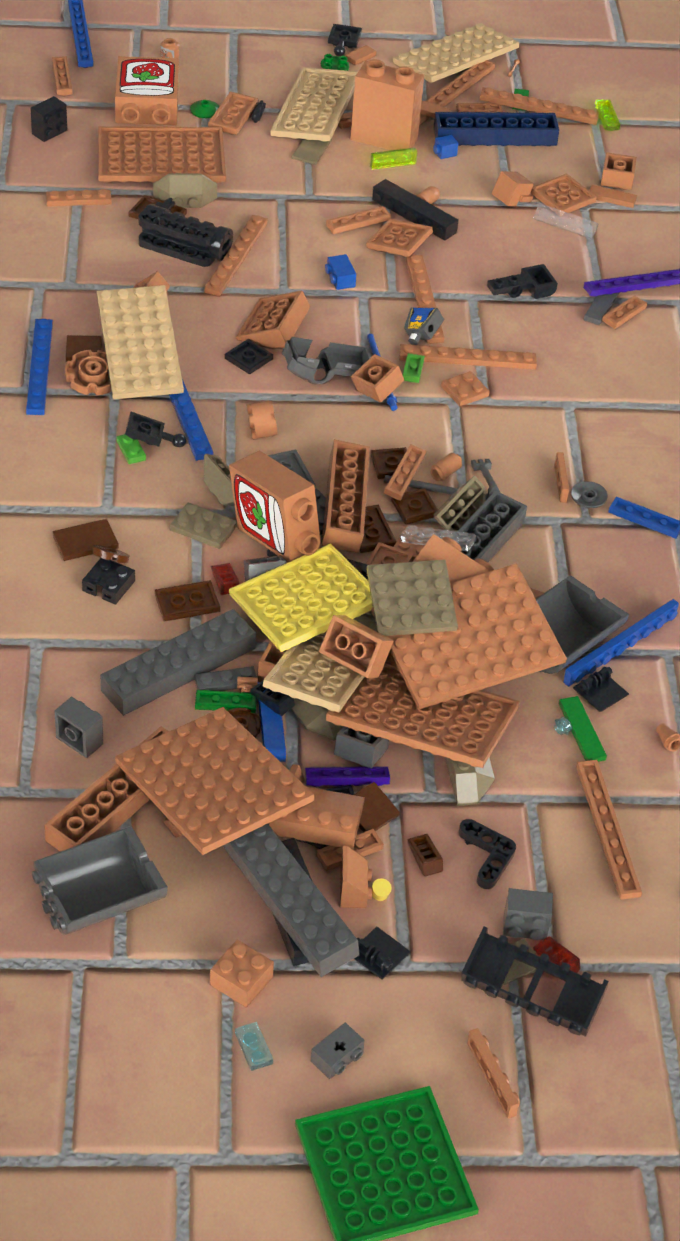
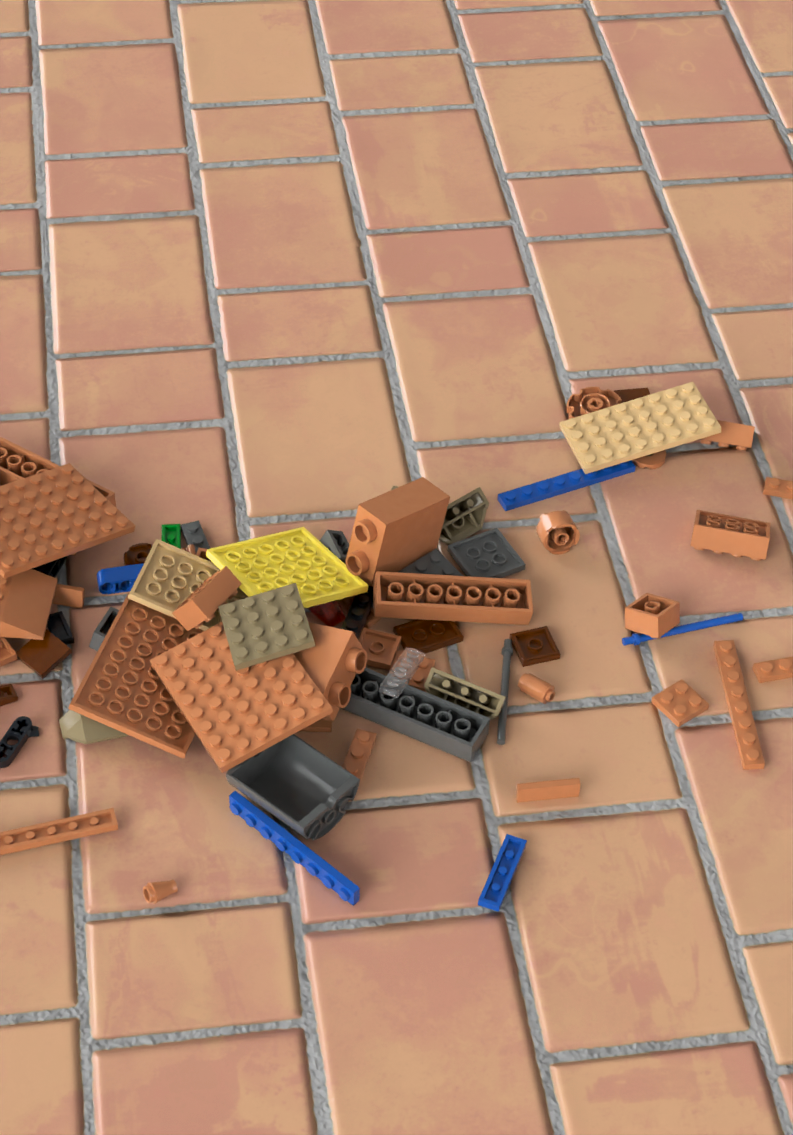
camera: 85 degrees right, 0 degrees up
(39, 367) = (597, 377): blue plate -> none
(79, 539) = (362, 434): reddish brown tile -> none
(79, 727) = (114, 447): dark grey brick -> none
(110, 553) = (345, 450): reddish brown tile -> none
(112, 576) = (309, 453): black piece -> none
(131, 449) = (498, 450): bright green plate -> none
(150, 431) = (521, 462): black plate -> none
(177, 661) = (205, 501): dark grey brick -> none
(187, 600) = (297, 508): reddish brown tile -> none
(226, 580) = (319, 529): clear red slope -> none
(248, 356) = (669, 522): black tile -> none
(335, 359) = (679, 584): dark grey piece -> none
(346, 776) = (81, 632): dark purple plate -> none
(405, 472) = (510, 649): nougat plate -> none
(413, 368) = (695, 653): bright green plate -> none
(415, 506) = (472, 667): reddish brown tile -> none
(422, 324) = (765, 650): dark grey torso -> none
(485, 467) = (550, 718): dark grey hinge -> none
(562, 726) = (165, 798): clear light blue plate -> none
(582, 729) = (165, 817): green tile -> none
(589, 494) = (524, 809): dark grey dish -> none
(601, 689) = (222, 831): black hinge -> none

